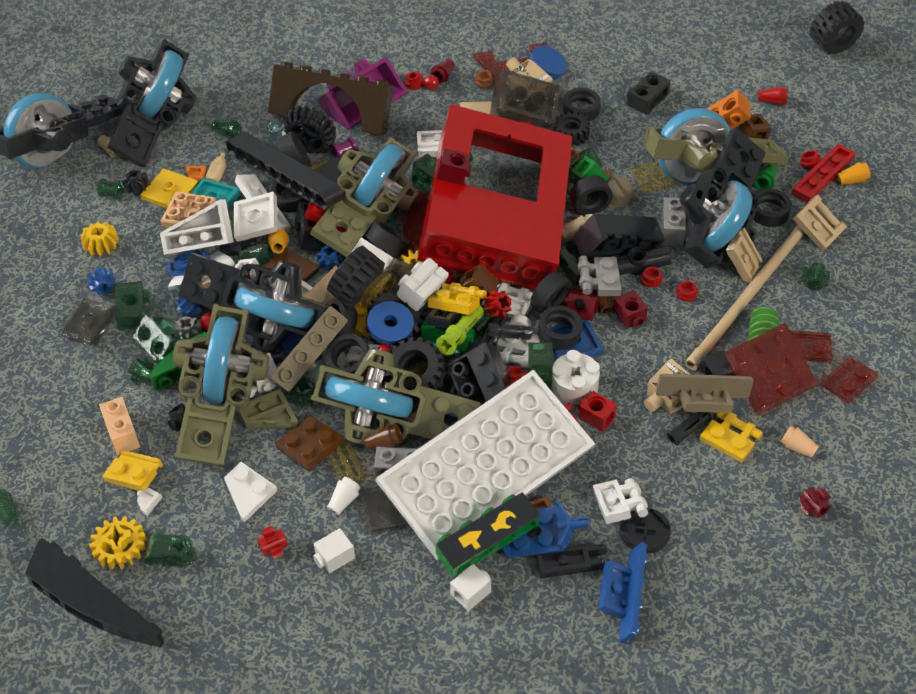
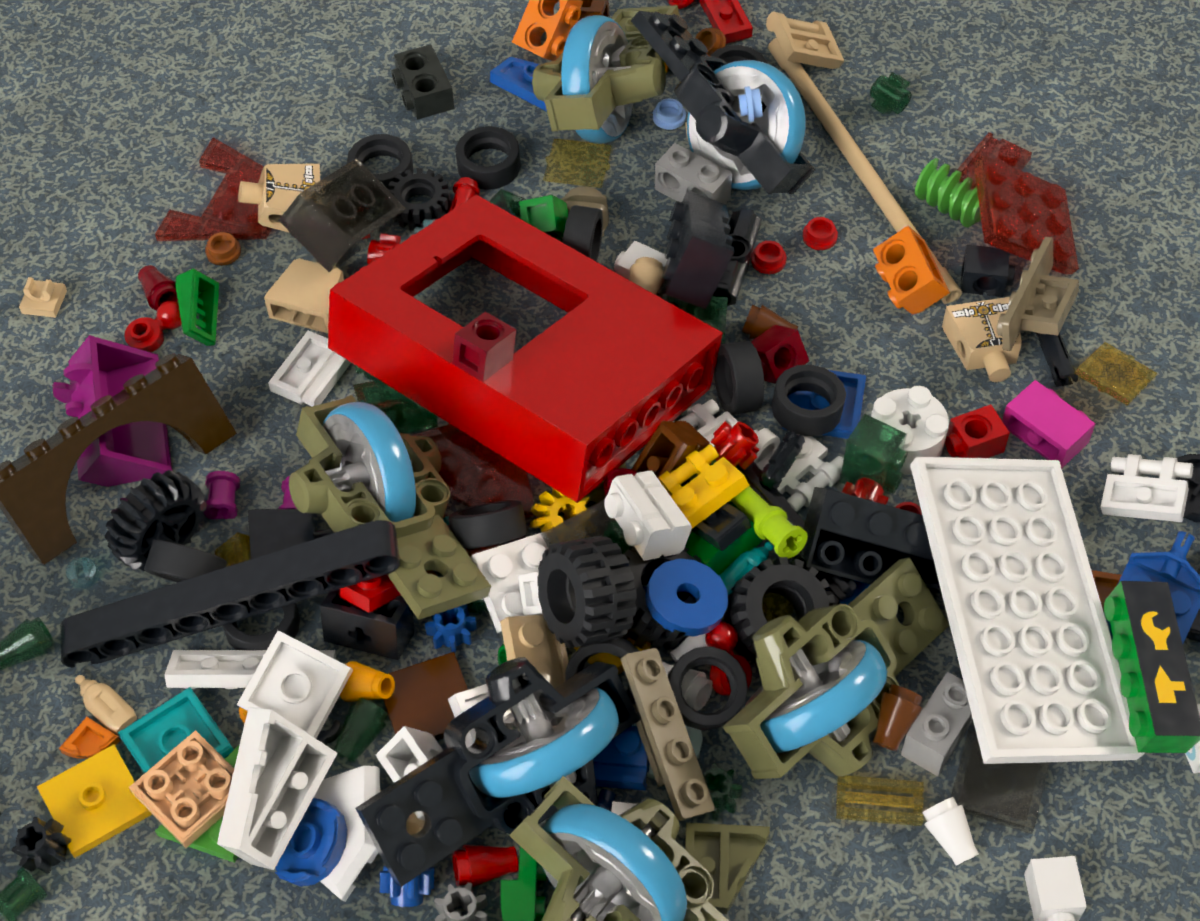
camera: 60 degrees left, 5 degrees up
(309, 442) = (816, 832): reddish brown plate -> none
(408, 38) = (42, 298): none -> tan tile
(455, 86) = (198, 297): none -> green slope
(549, 60) = (255, 151): blue tile -> none
(592, 141) = (464, 190): none -> red pin
(606, 276) = (753, 304): light grey plate -> none
(621, 150) = (488, 138): none -> black tyre
(630, 309) = (819, 308): dark red brick -> none
(630, 440) = (1048, 423): none -> dark pink brick
(687, 335) = (910, 271): none -> orange brick
(695, 459) = (1115, 373): none -> clear yellow piece
(713, 201) = (750, 104): none -> light blue plate
(727, 440) = (1102, 324): yellow plate -> none
(744, 255) = (821, 149): tan plate -> none
(784, 185) = (712, 39): none -> dark orange plate
(799, 442) = (1146, 255): light nougat cone -> none
(849, 379) = (1071, 156): clear red plate -> none

